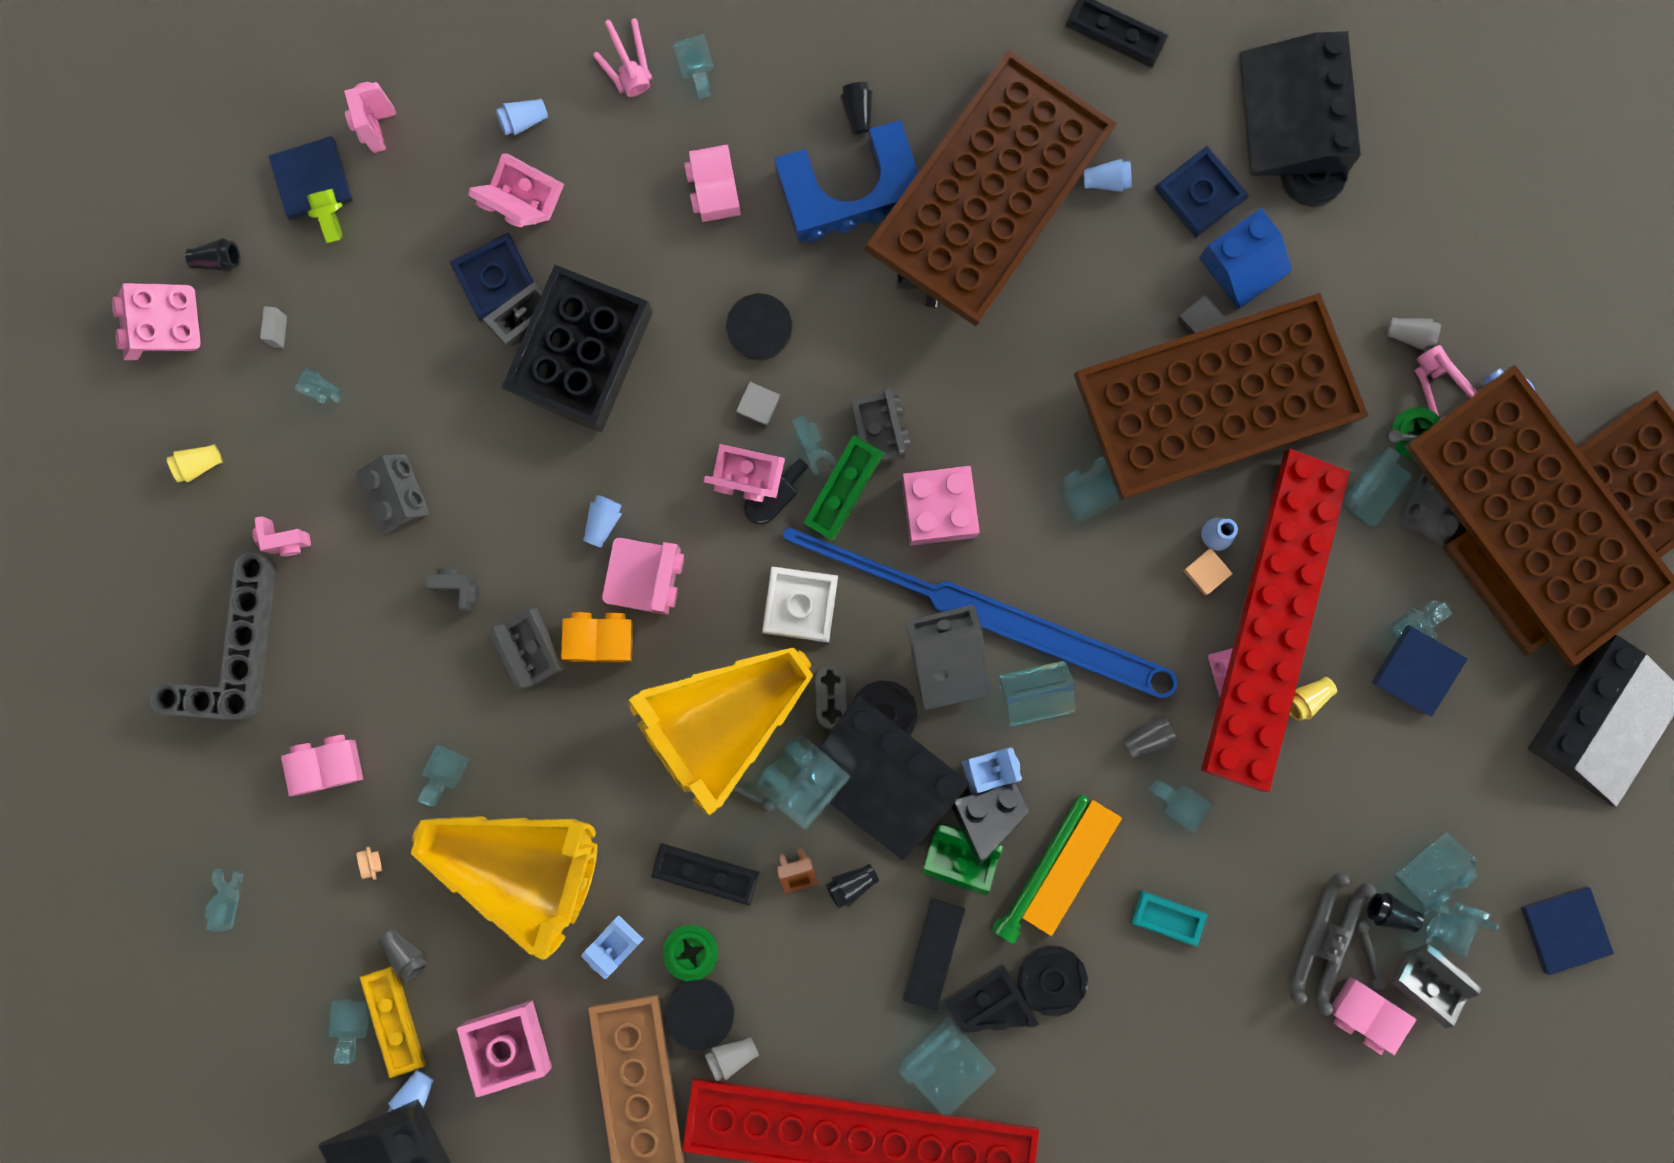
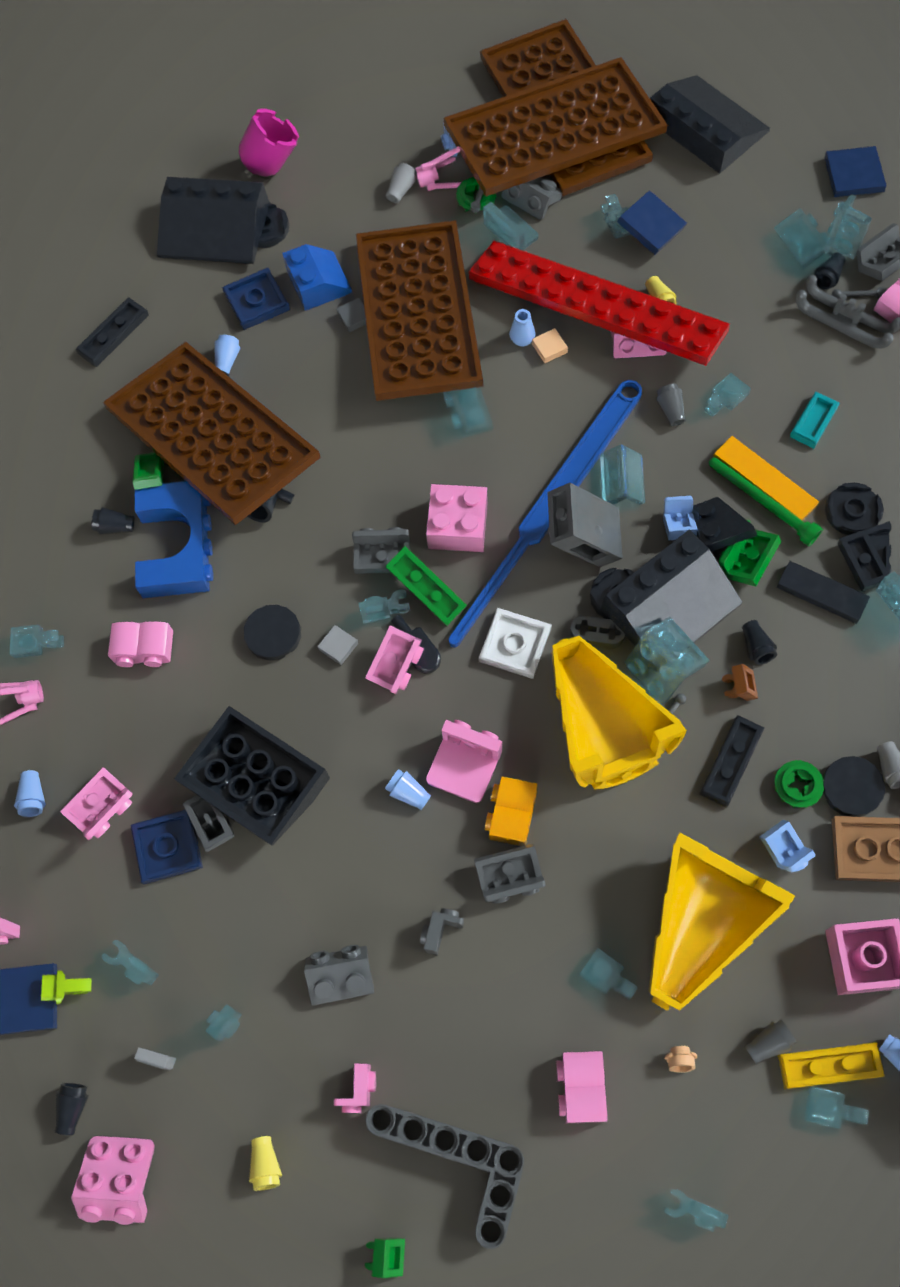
camera: 70 degrees left, 15 degrees down
(130, 602) = (387, 1257): none -> green tile
(361, 279) = (136, 968): none -> clear light blue plate
(925, 128) = (147, 471): none -> green tile
(1429, 145) = (267, 143): none -> dark pink cylinder

